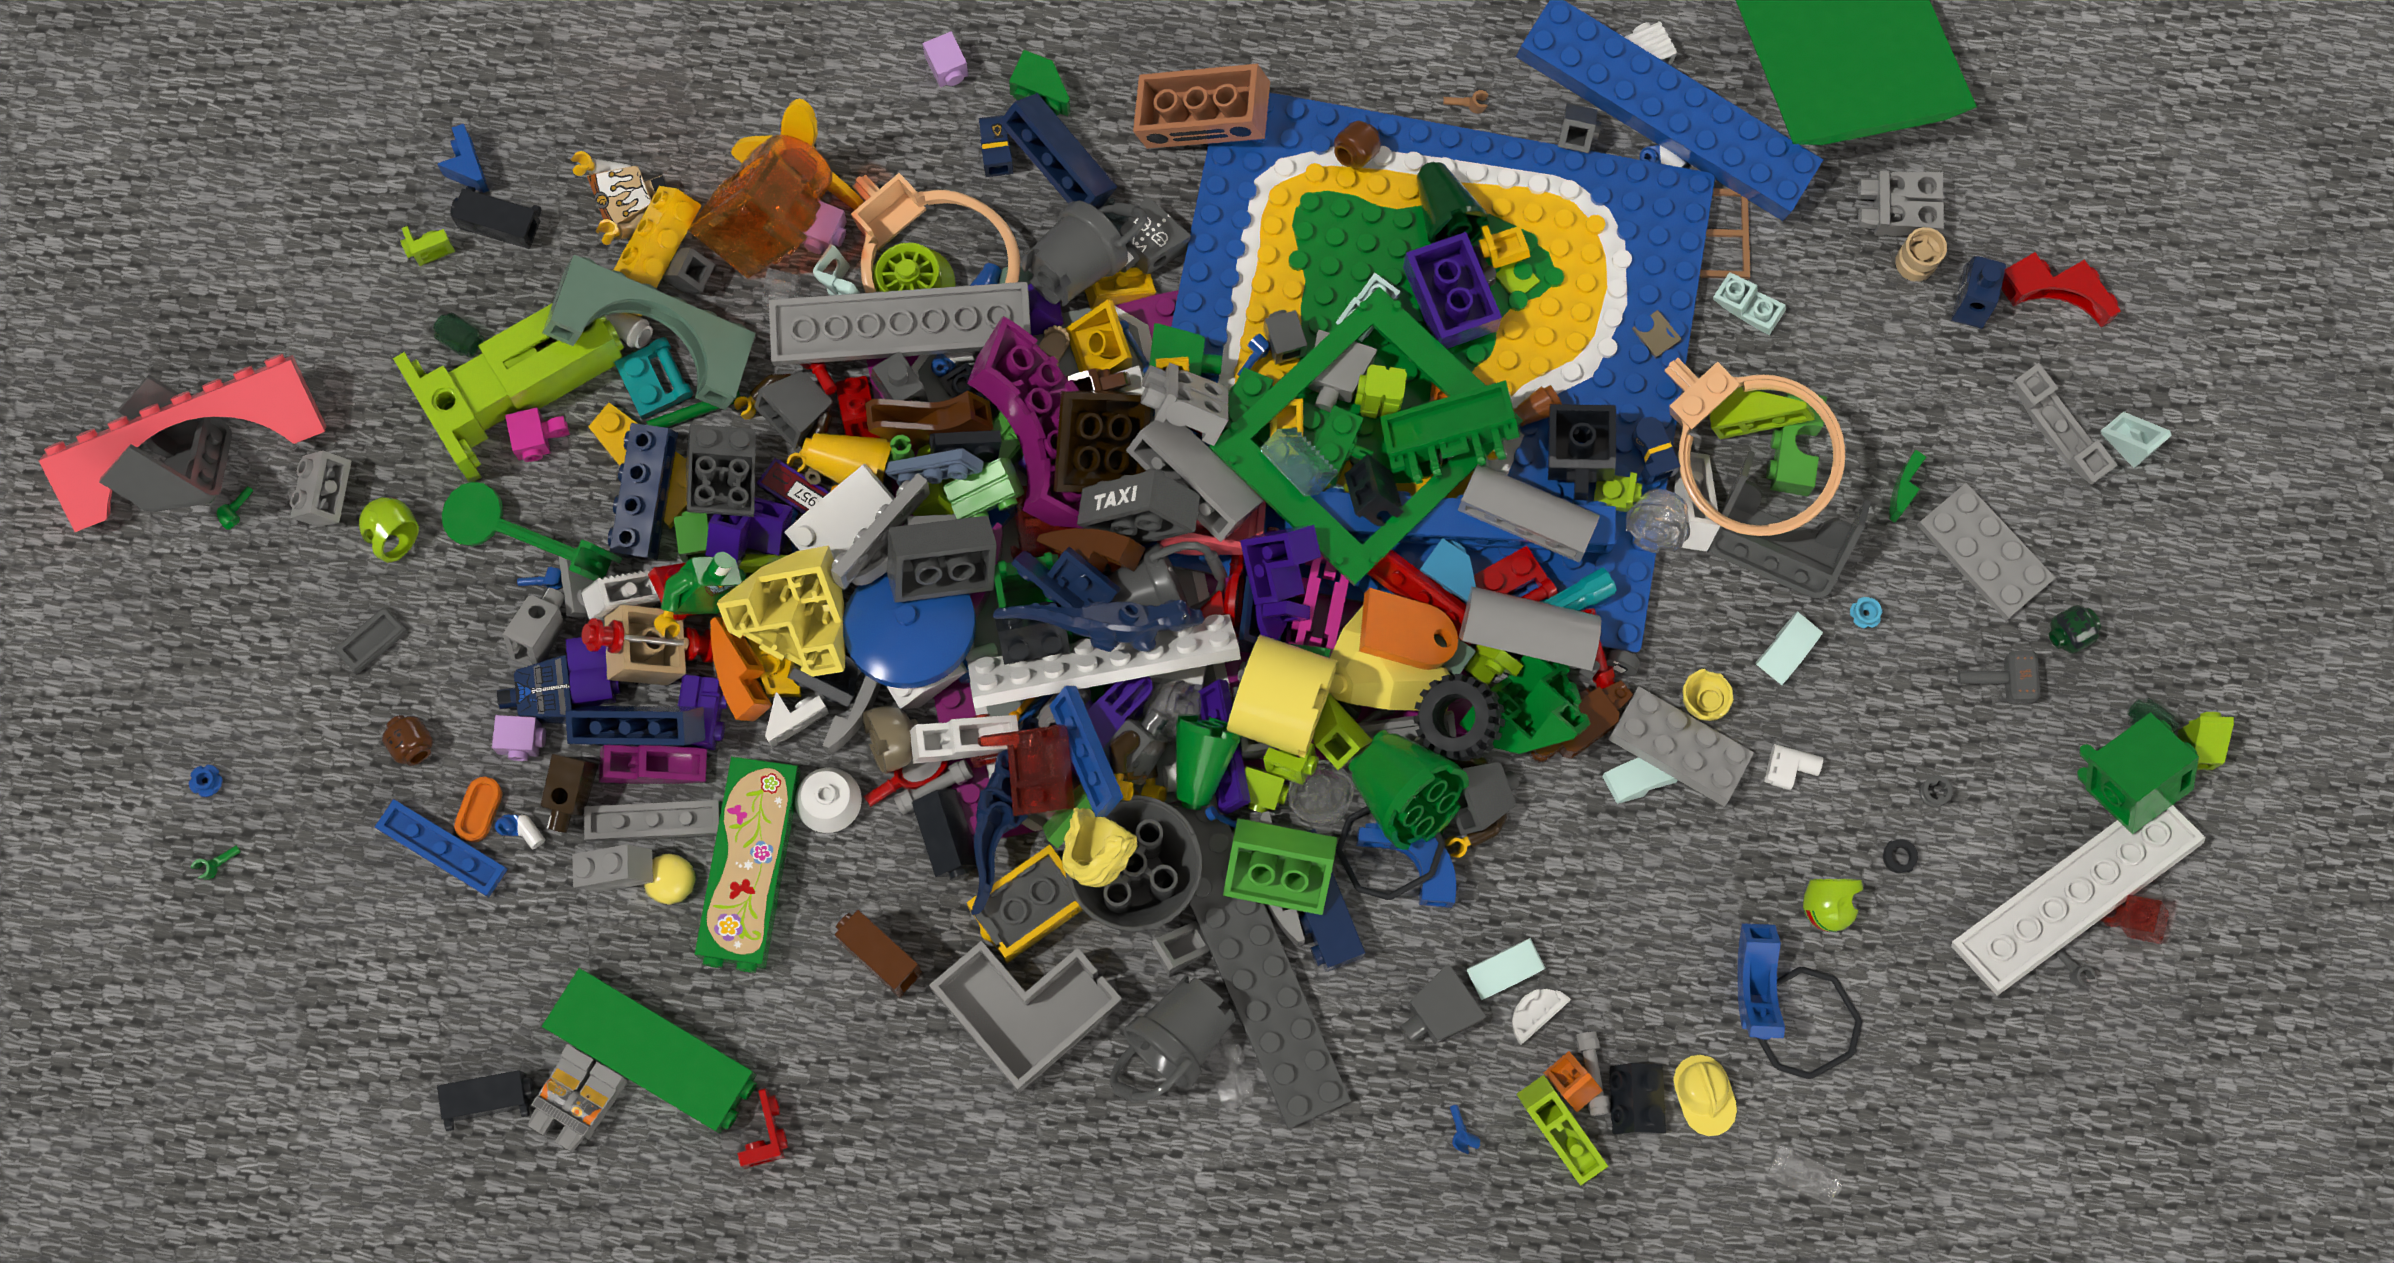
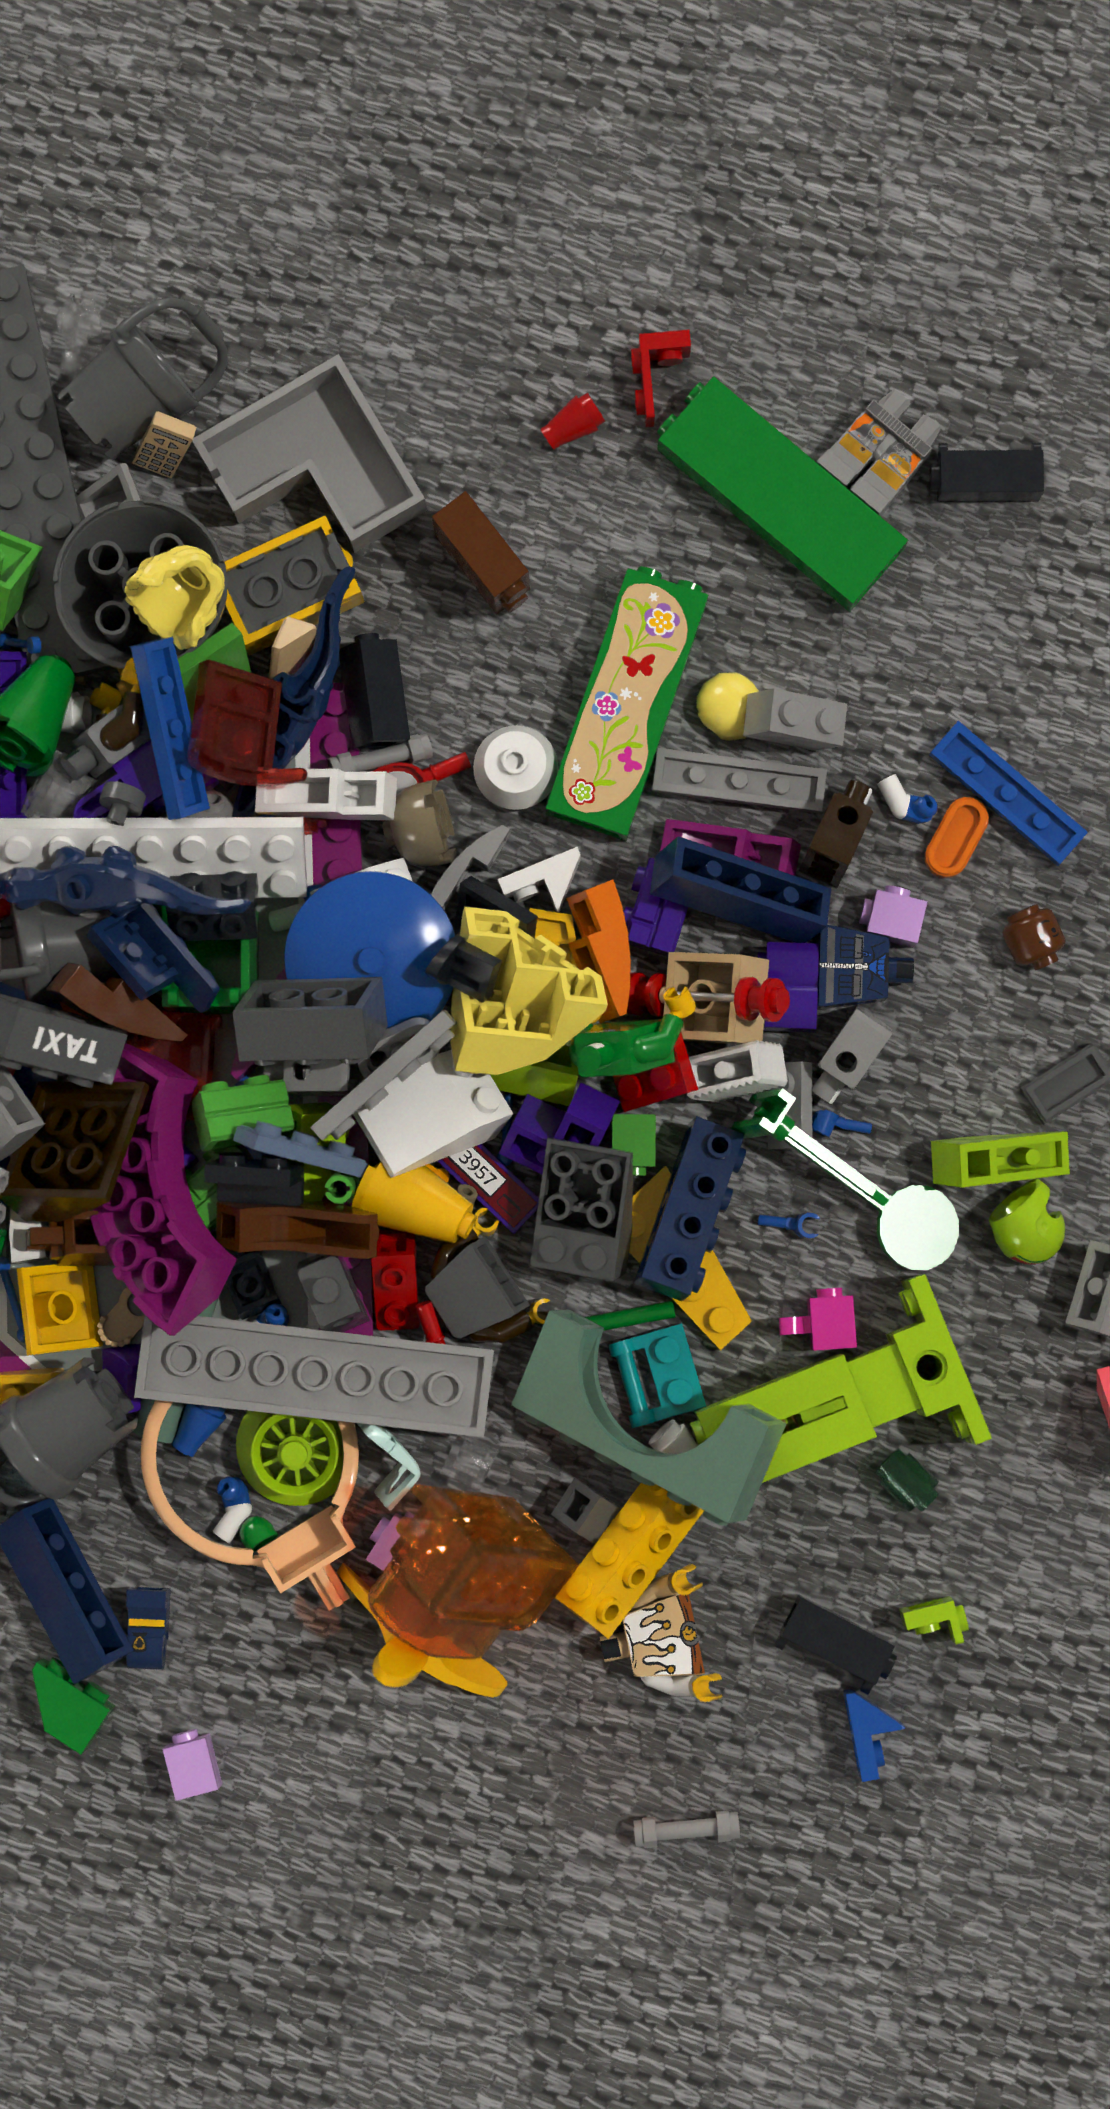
camera: 160 degrees left, 10 degrees up
(418, 571) = (999, 1158): none -> lime slope
(561, 85) = (724, 1826): none -> light grey bar
(565, 503) = (789, 1223): none -> blue hand
(824, 1081) = (573, 421): none -> red cone
(831, 619) = (465, 968): none -> black tile
(928, 221) = (257, 1532): none -> green hinge
(946, 235) = (236, 1505): none -> arm
(1014, 846) = (291, 646): none -> tan slope
(1114, 692) = (121, 801): none -> dark grey tile
(1143, 994) = (164, 444): none -> tan tile

